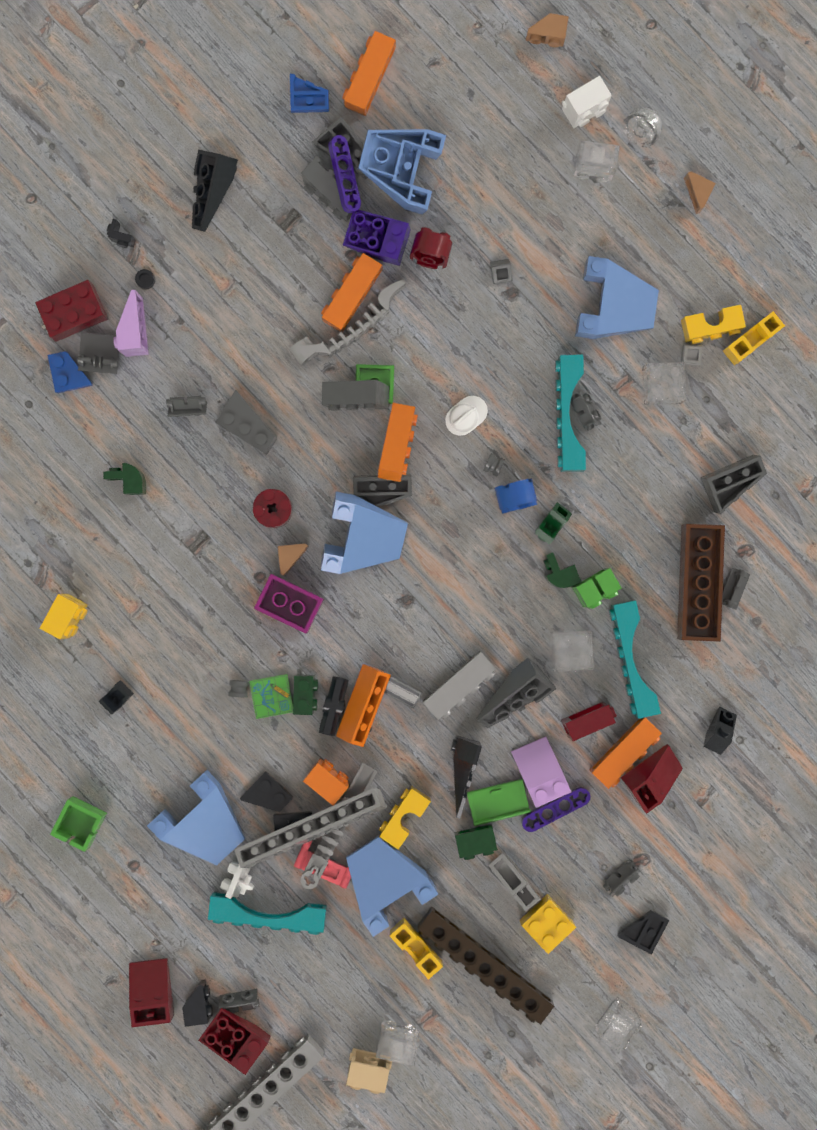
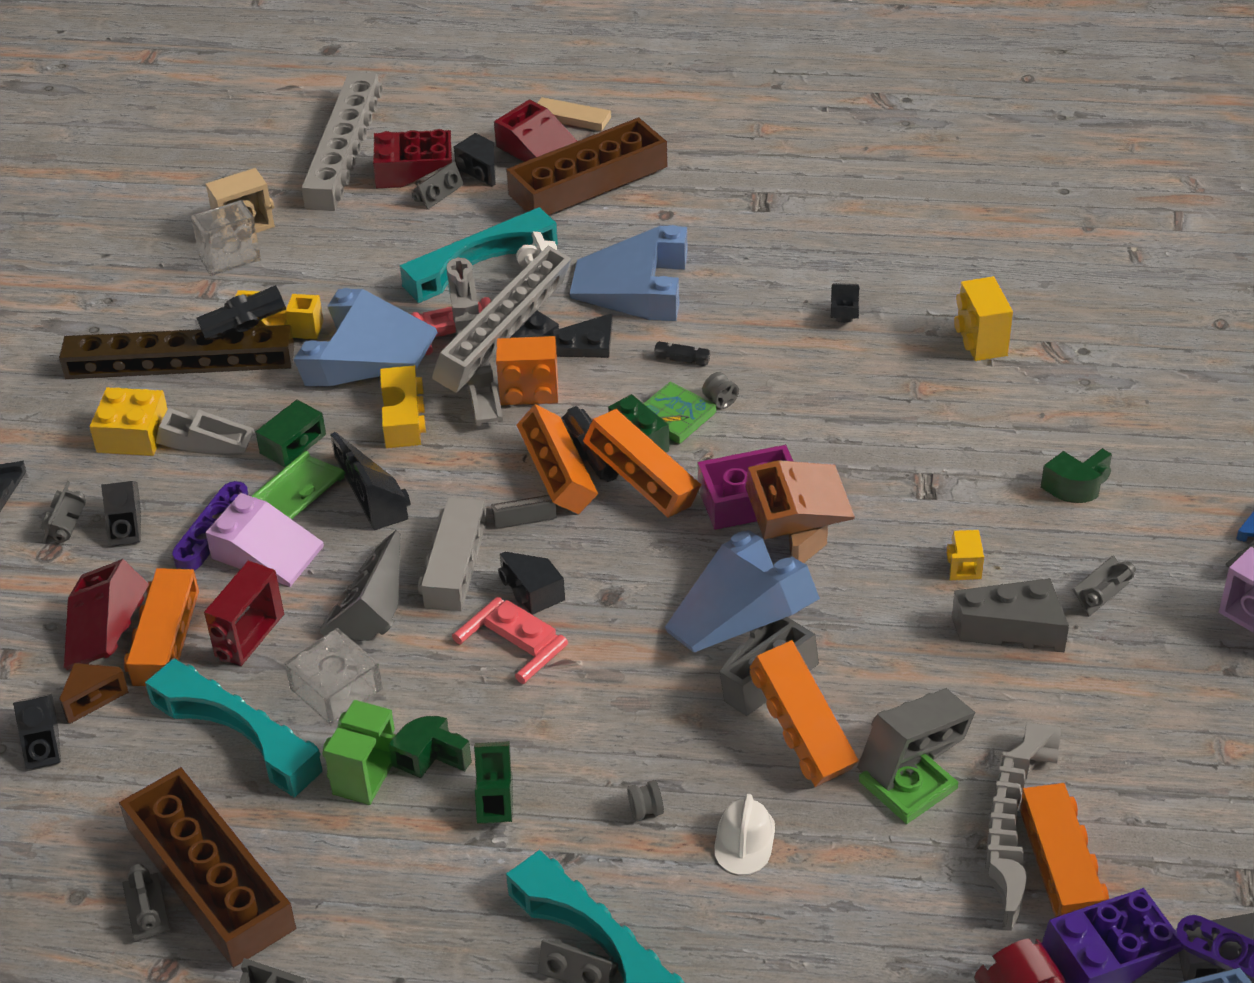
camera: 145 degrees right, 45 degrees down
(78, 820) = (768, 204): bright green piece -> none
(105, 1009) = (577, 114): none -> tan tile
(147, 936) = (587, 167): none -> reddish brown brick
(228, 478) = (965, 555): none -> yellow brick
(229, 737) = (682, 353): none -> black axle
(283, 506) = (877, 558): dark red brick -> none
(285, 562) = (796, 497): none -> dark orange slope
(328, 661) = (642, 463): none -> orange brick
(437, 634) = (533, 580): none -> black slope
(443, 951) = (241, 313): none -> black piece
(465, 611) = (518, 628): none -> coral plate
(516, 495) = (577, 775): blue brick -> none
(593, 854) = (122, 512): none -> black slope
(684, 738) = (90, 689): none -> reddish brown slope

